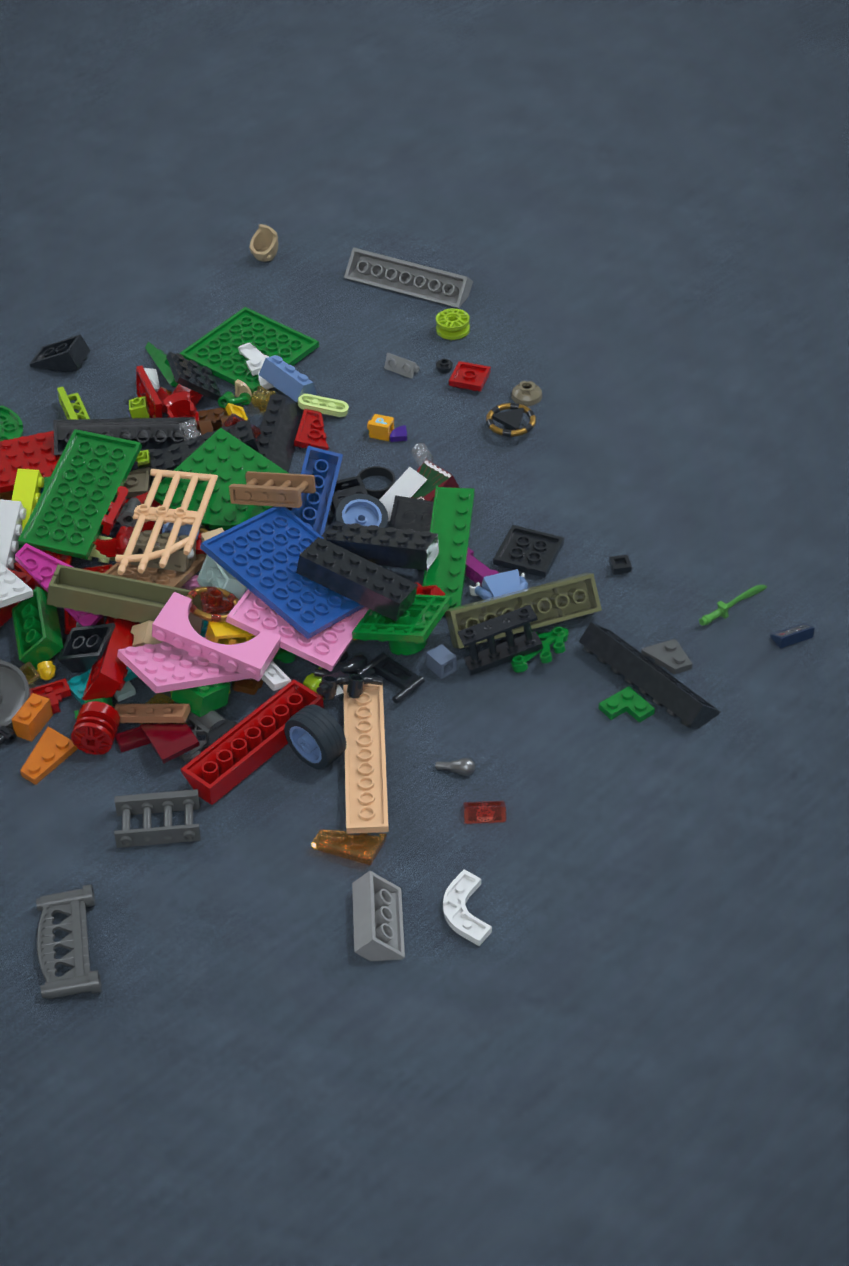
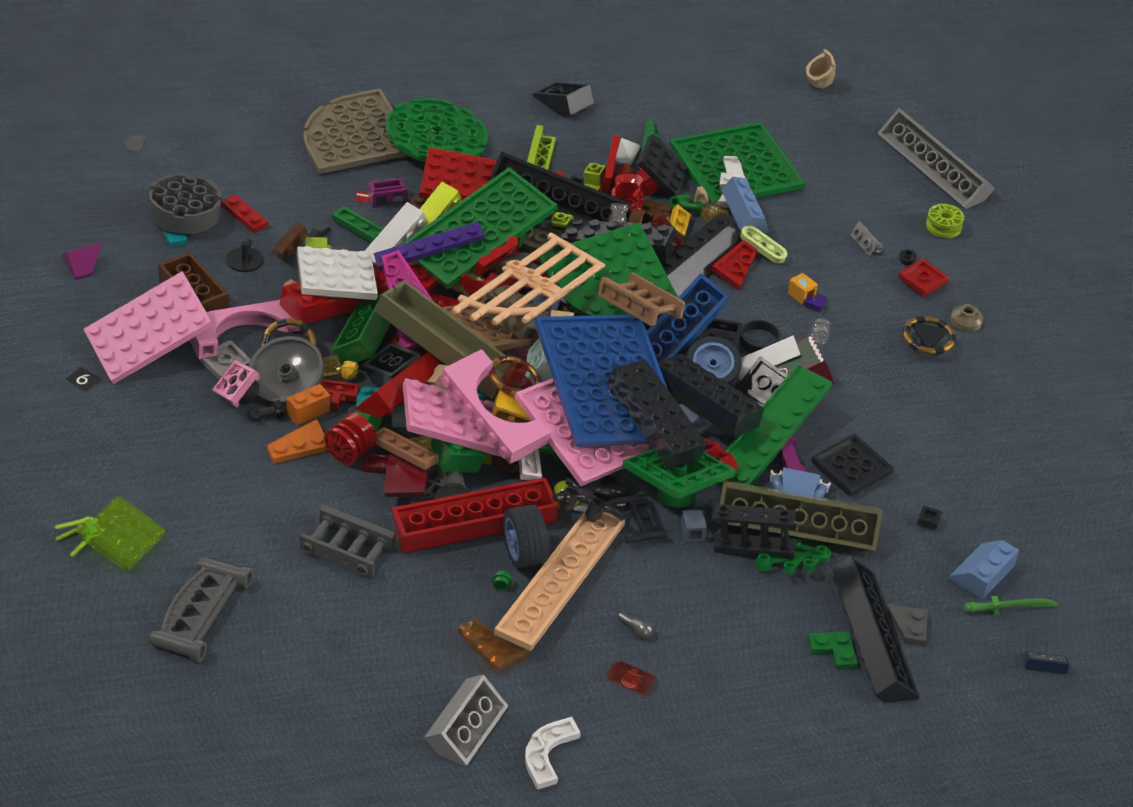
camera: 25 degrees right, 0 degrees up
(49, 526) = (434, 244): none -> dark purple plate
(316, 785) = (502, 580): none -> green plate
(691, 582) = (985, 567): none -> medium blue slope

